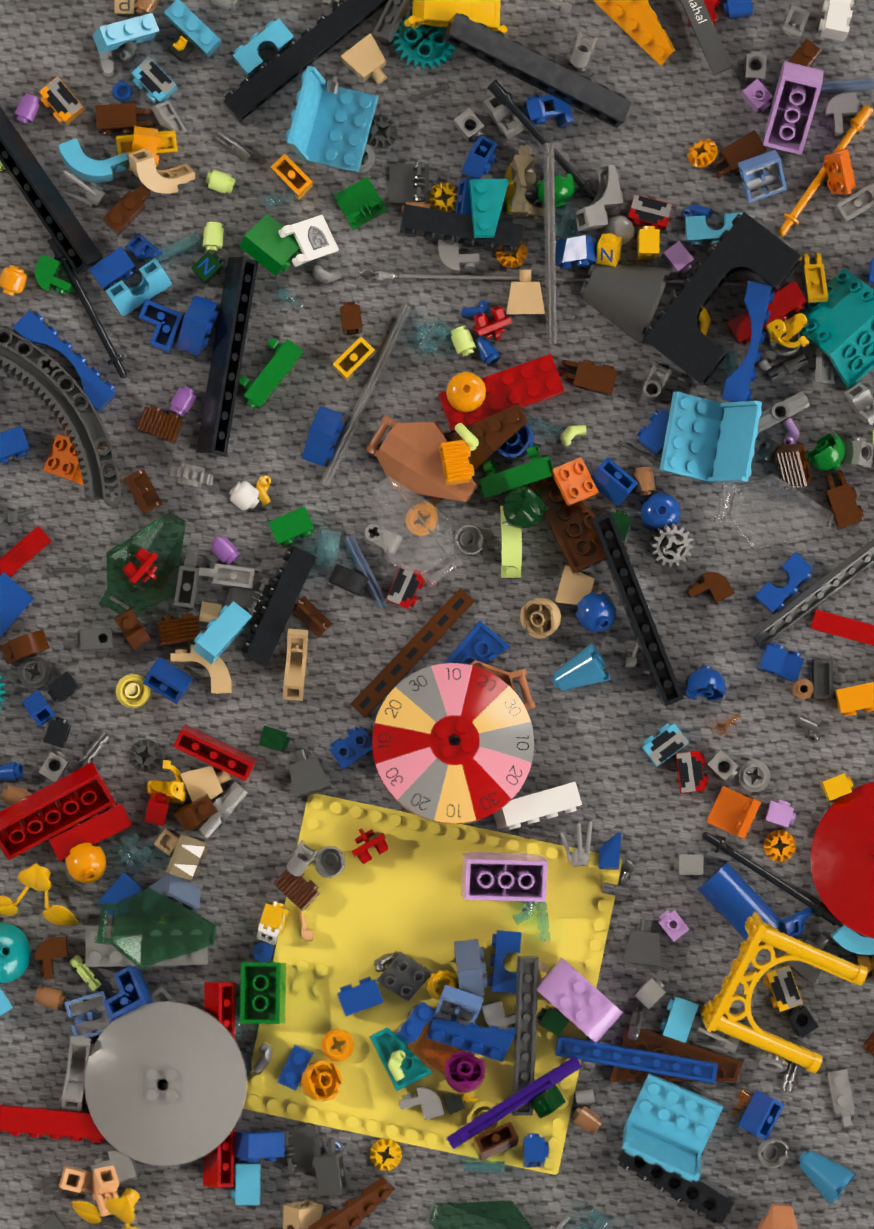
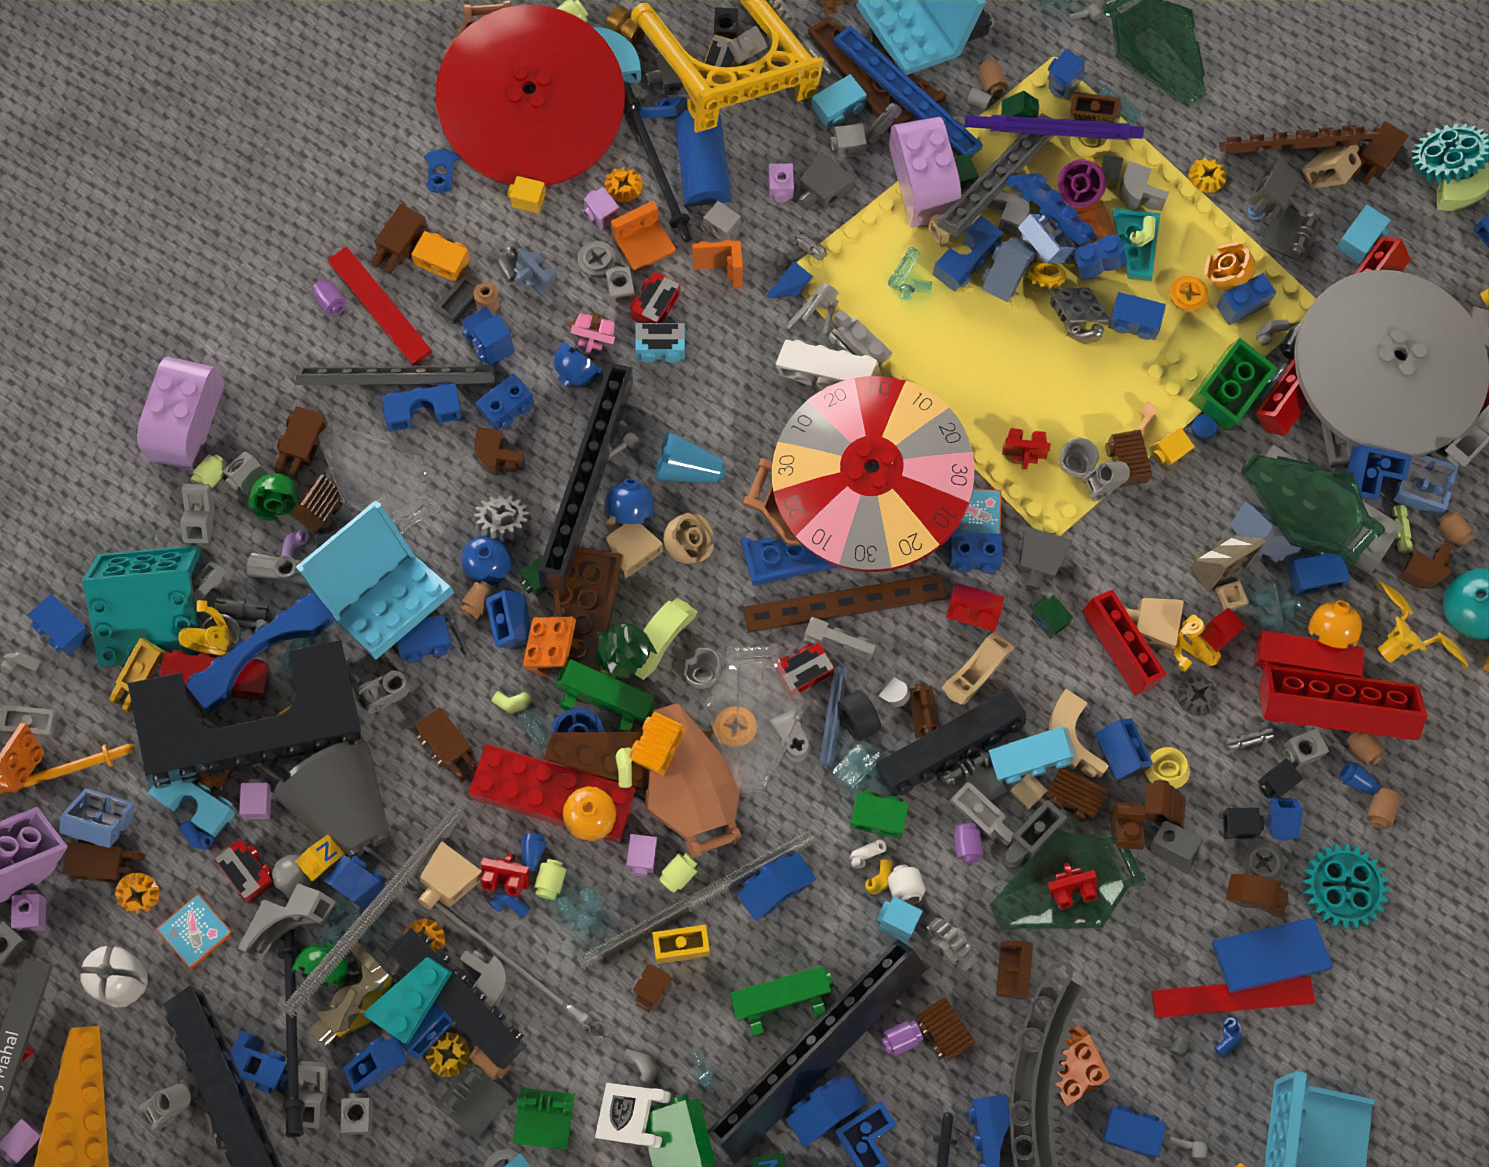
camera: 140 degrees left, 15 degrees down
(118, 660) = (1164, 804): none -> reddish brown brick
(193, 813) = (1190, 595): reddish brown brick -> none
(225, 807) = (1154, 585): light grey piece -> none
(233, 468) = (898, 919): none -> medium azure brick
(261, 1144) = (1333, 252): blue brick -> none
(268, 932) = (1190, 428): white tile -> none
(282, 501) = (872, 849): none -> white arm
(326, 707) = (975, 607): none -> red brick
(337, 614) = (895, 693): none -> tile
(365, 779) = (983, 513): none -> medium azure tile
(388, 401) = (678, 872): none -> yellowish green brick
(413, 617) = (838, 638): none -> light grey plate
(418, 396) = (641, 854): none -> lavender brick
(504, 876) = (915, 319): lavender brick -> none
(531, 843) = (859, 338): none -> light grey hinge
(648, 243) = (273, 834): yellow brick -> none
(651, 158) = (194, 931): none -> medium azure tile
(655, 832) = (720, 255): none -> orange bracket
(680, 100) = (105, 982): none -> white cylinder
(711, 715) = (582, 328): none -> bright pink hips
(732, 625) = (505, 403): none -> blue brick
(770, 1006) = (747, 45): none -> light grey brick
(788, 729) = (531, 274): none -> sand blue hips

